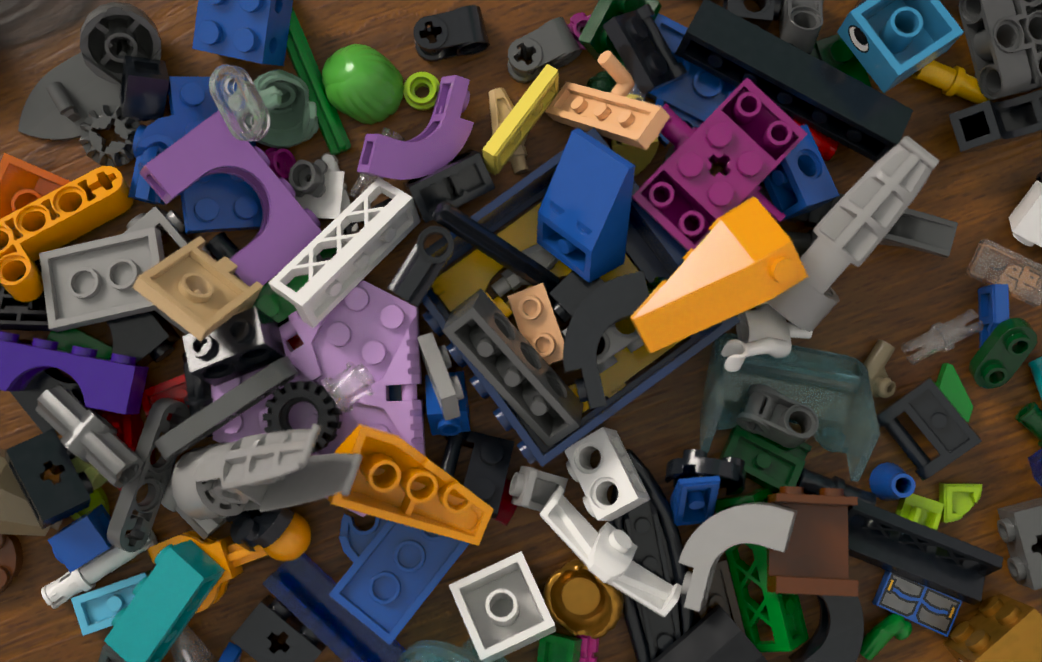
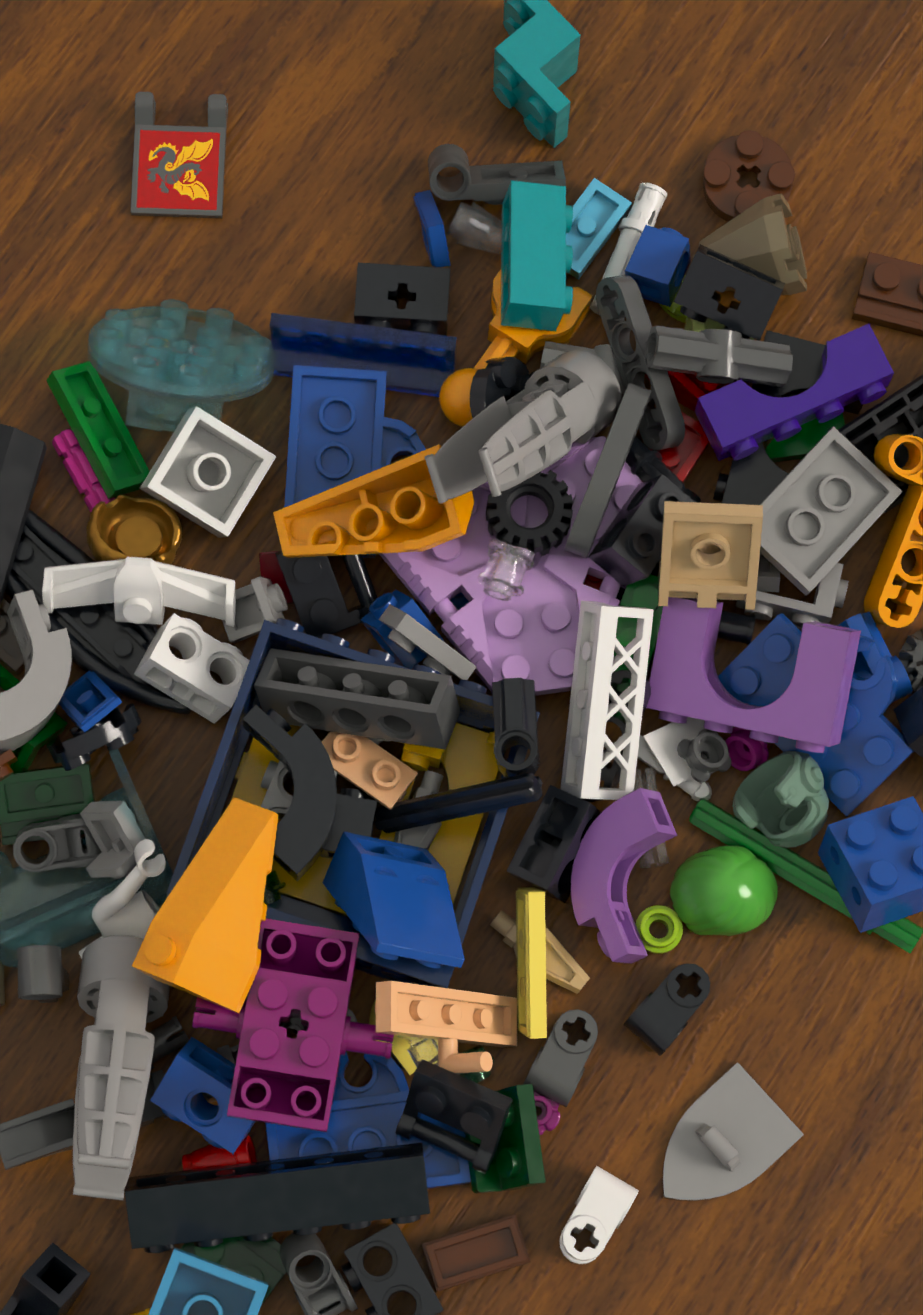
camera: 145 degrees right, 10 degrees down
(240, 105) = (812, 762): clear plate -> none
(741, 388) = (116, 835): none -> light grey bracket
(851, 334) = (41, 973): none -> dark grey piece

